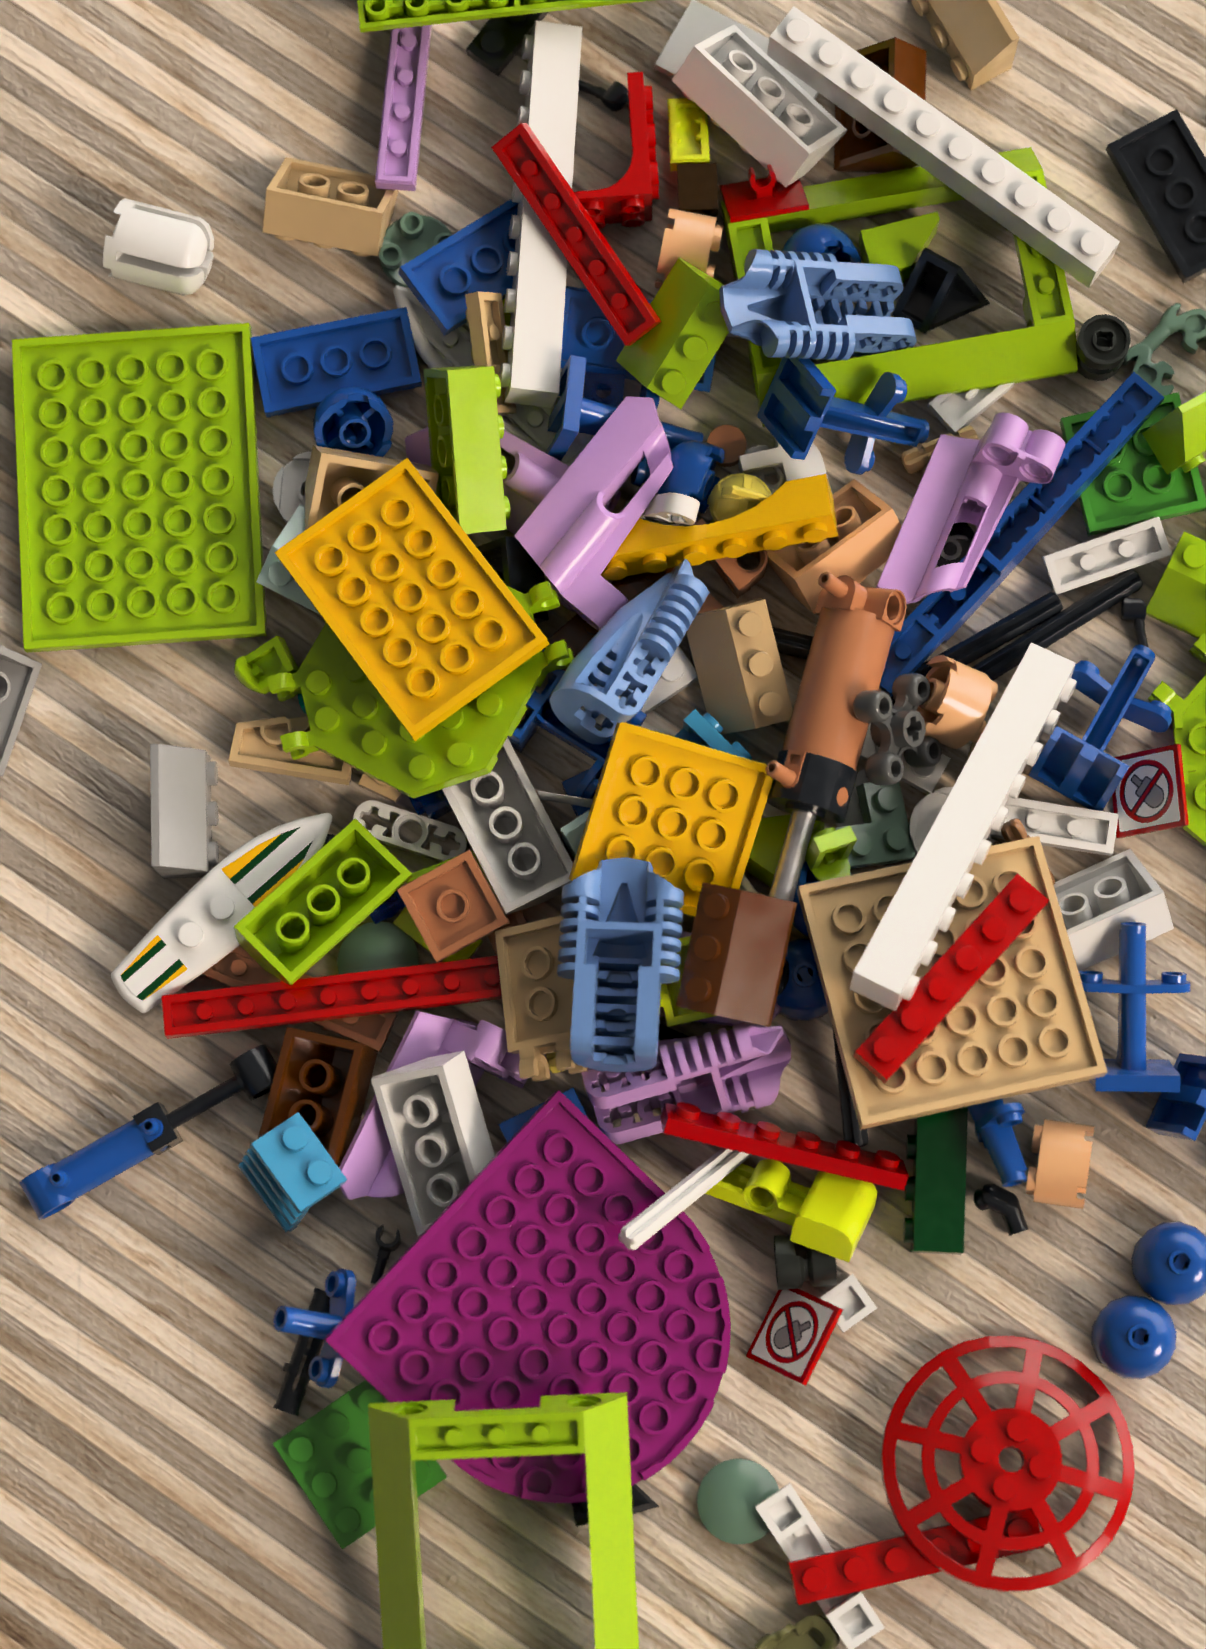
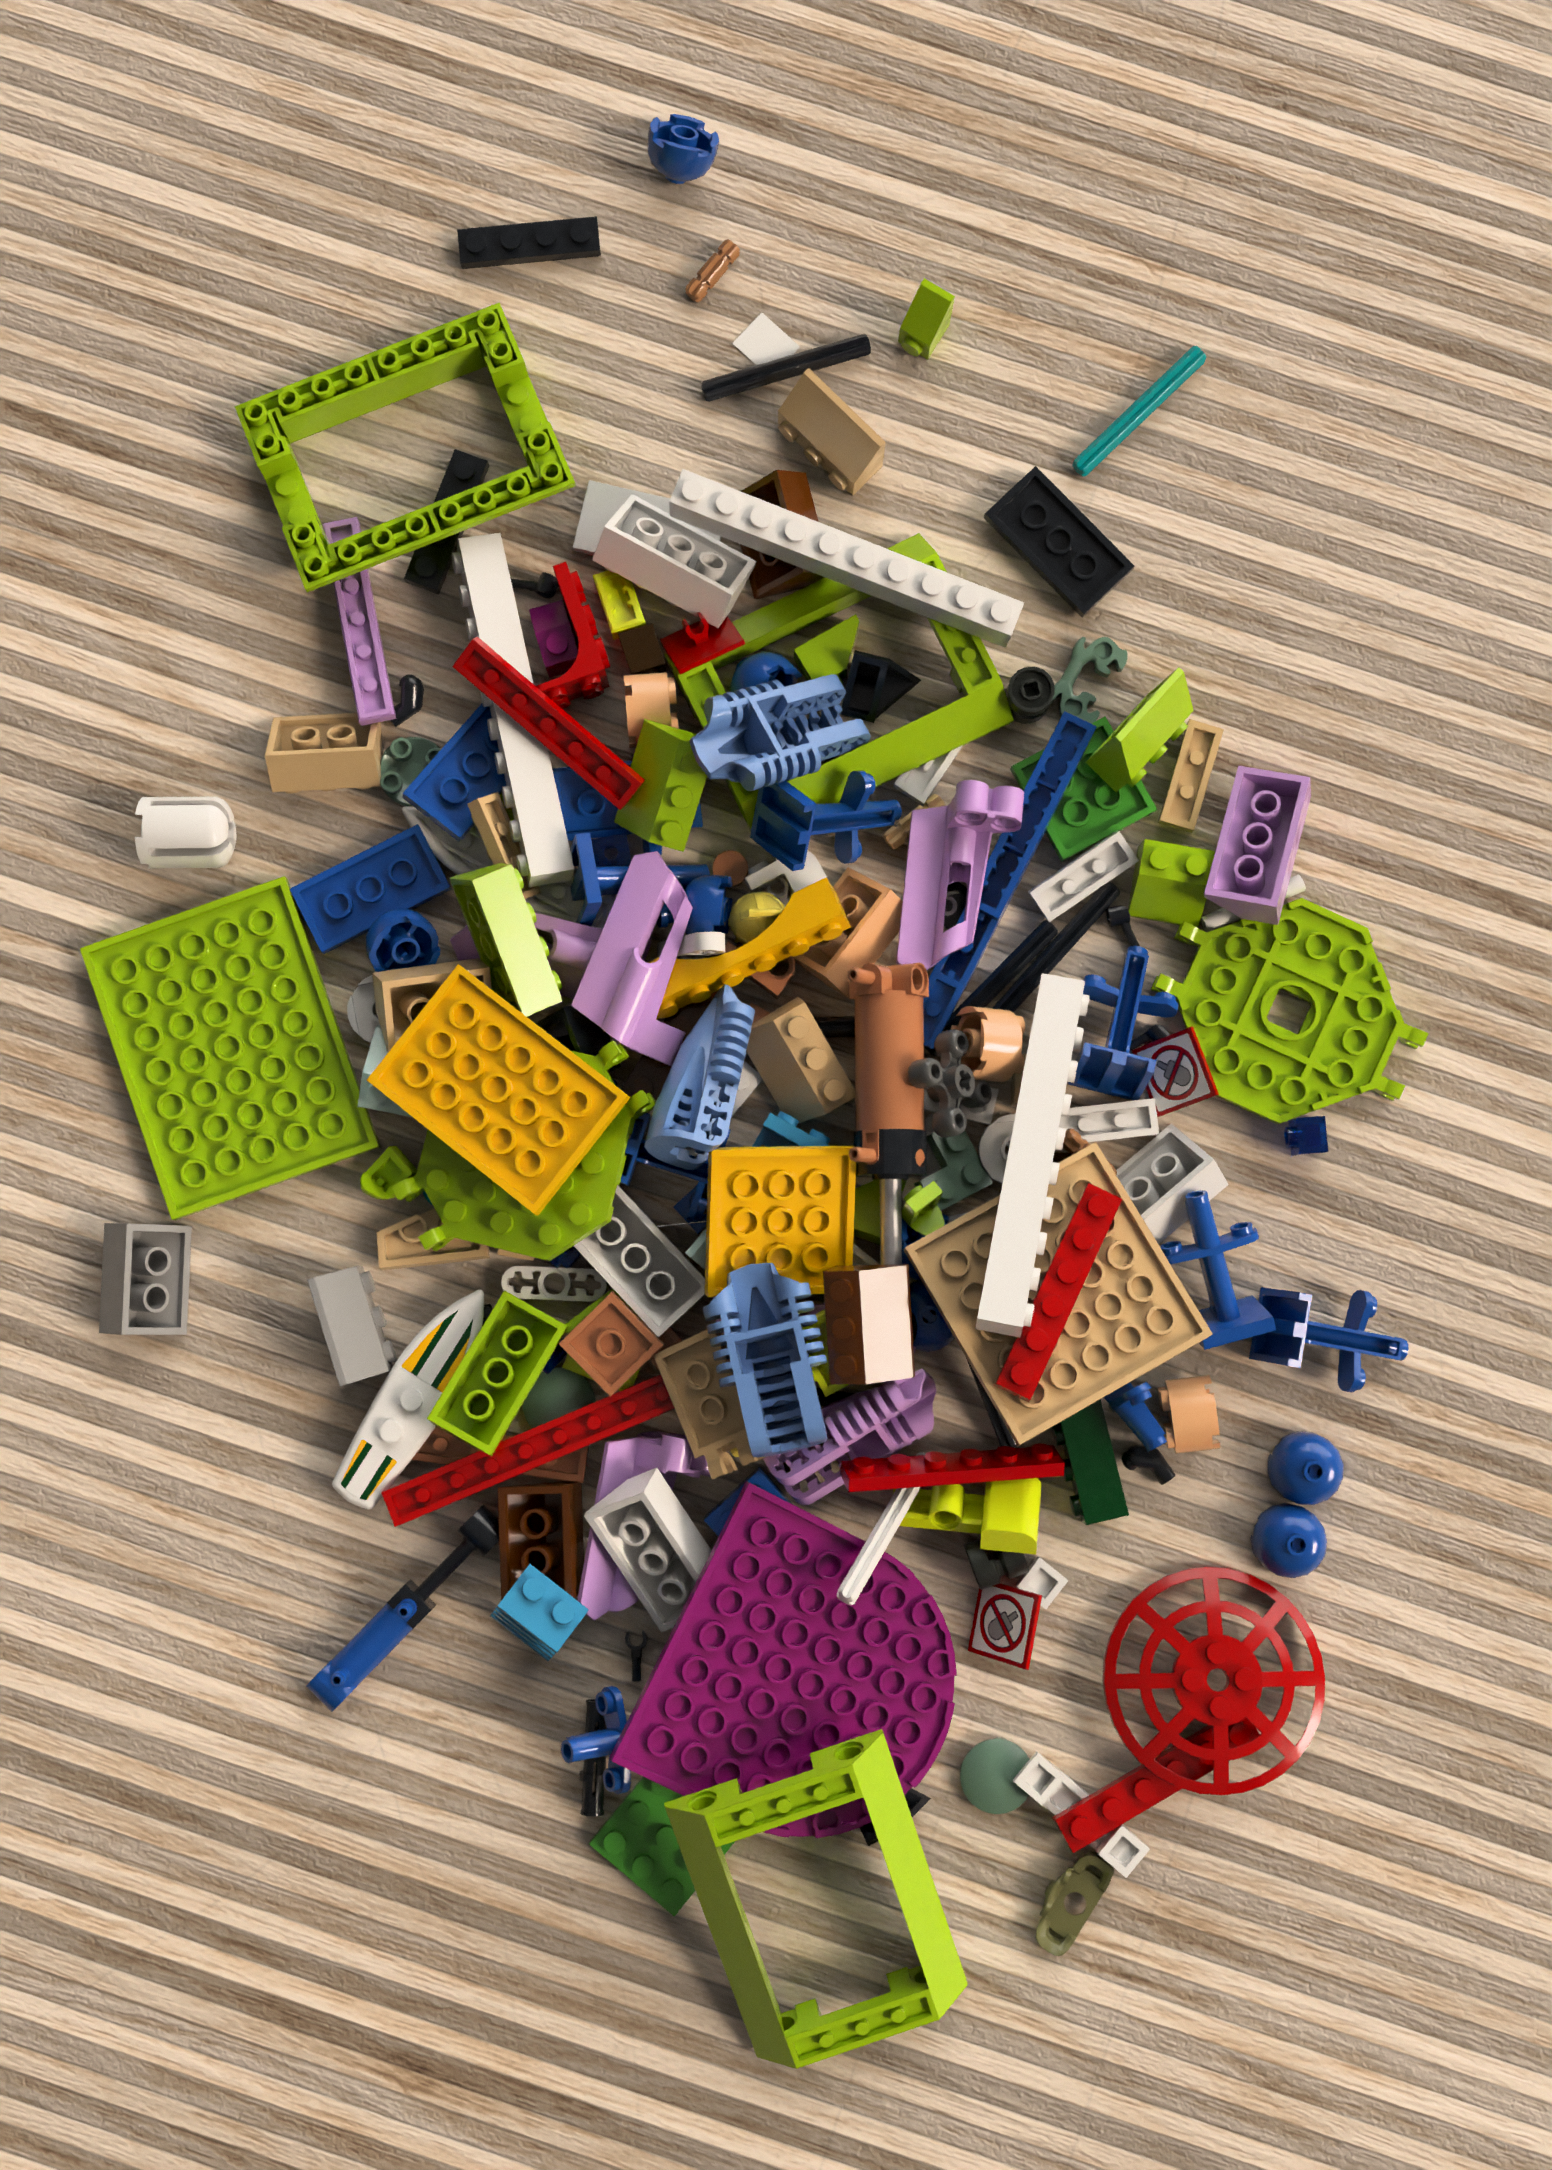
camera: 25 degrees left, 5 degrees up
(436, 176) = (411, 699): none -> black arm
(608, 150) = (554, 637): none -> magenta slope
(1135, 745) = (1154, 1033): none -> black hand

